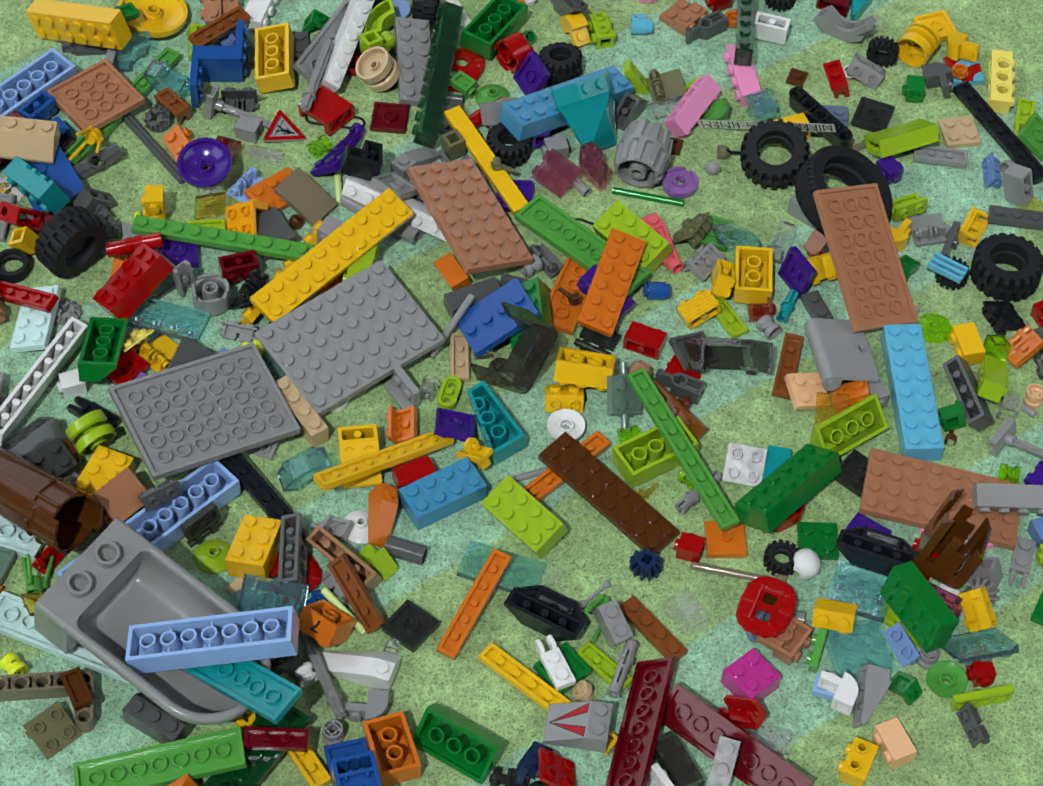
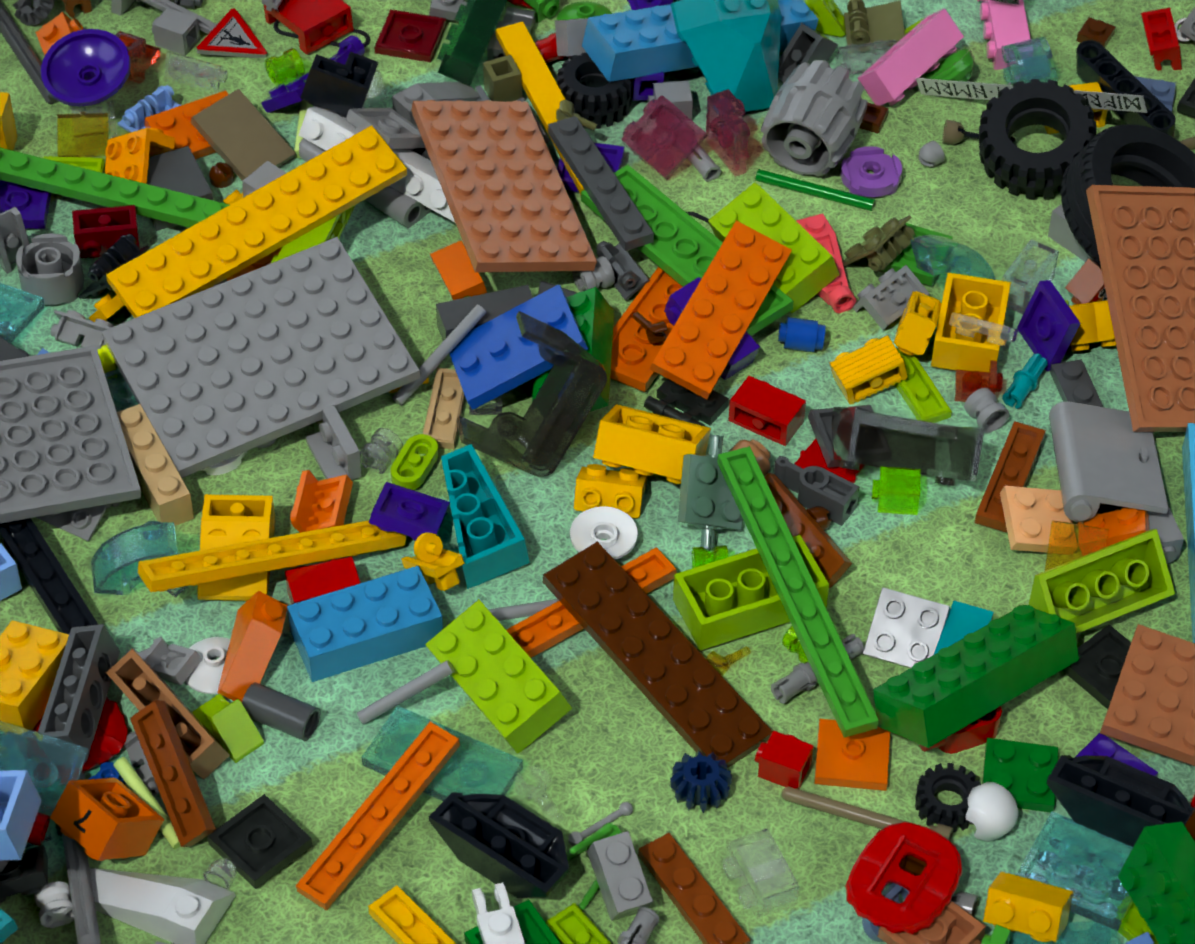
camera: 10 degrees right, 5 degrees down
(474, 531) = (406, 692): none -> light grey bar
(525, 208) = (600, 183): none -> dark grey plate
(726, 381) = (897, 490): none -> clear neon green brick
(754, 278) = (968, 325): none -> clear plate

